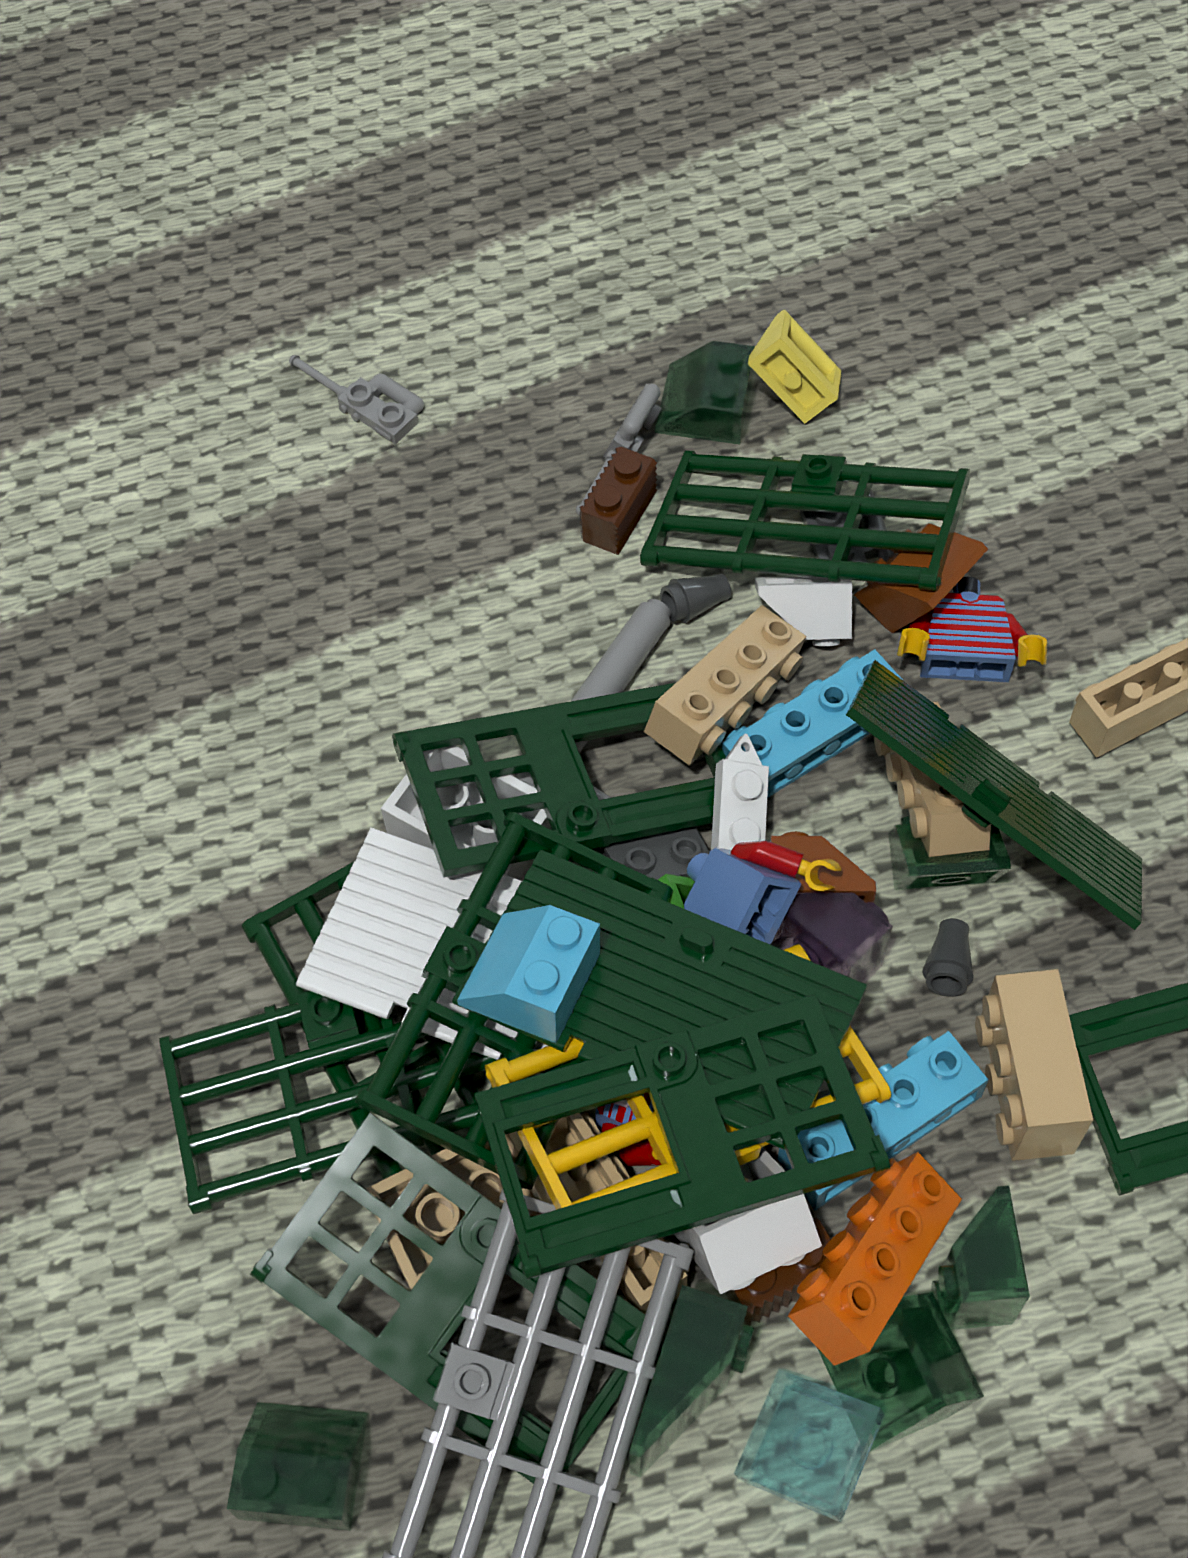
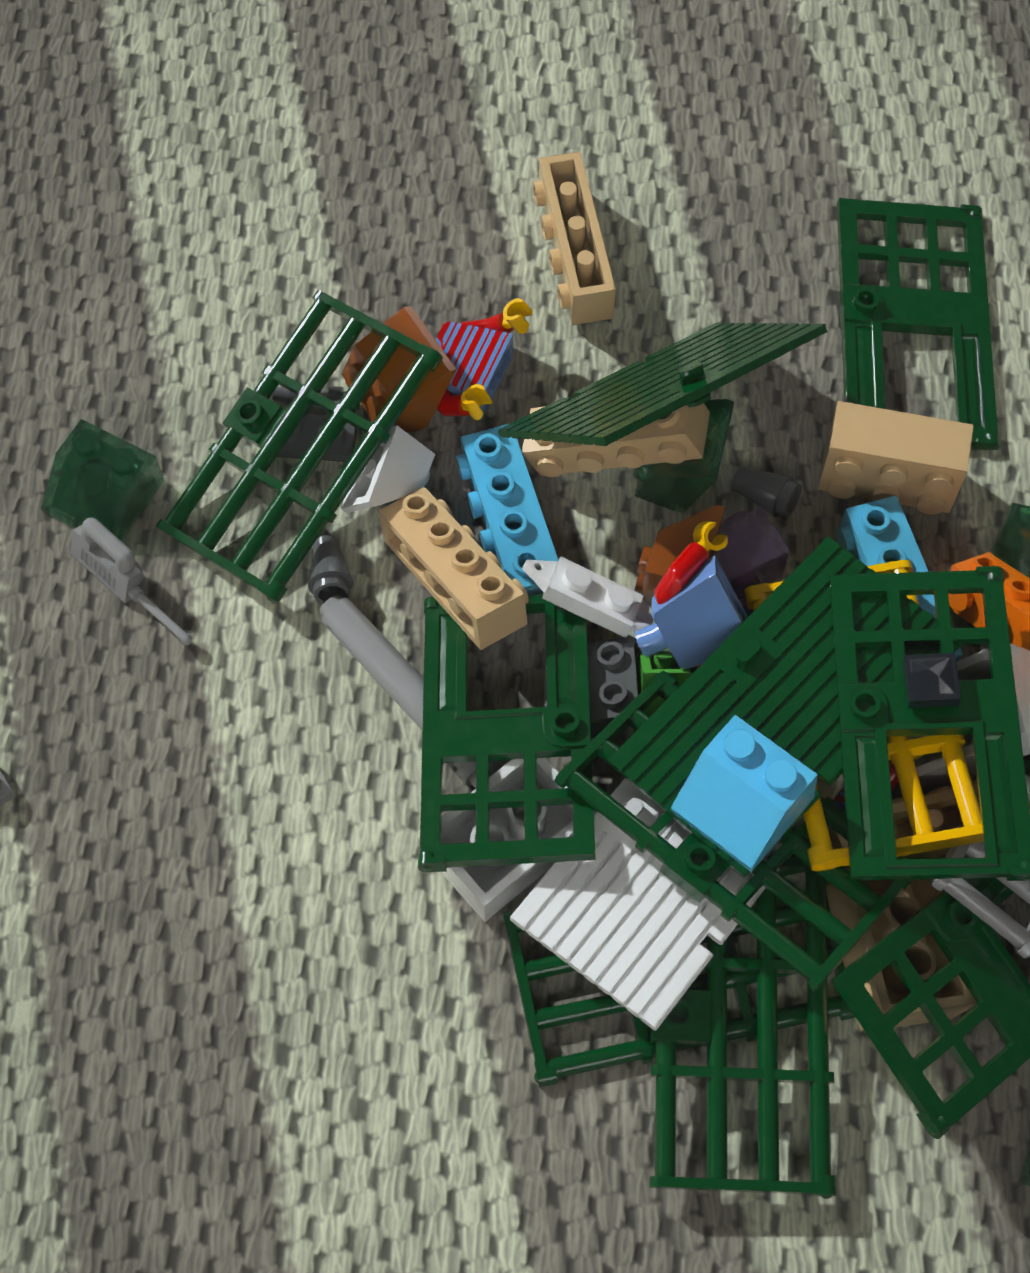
camera: 75 degrees left, 5 degrees up
(618, 500) = (195, 600): reddish brown brick -> none
(716, 1114) = (931, 680): none -> black tile
(795, 367) = (116, 395): light yellow tile -> none

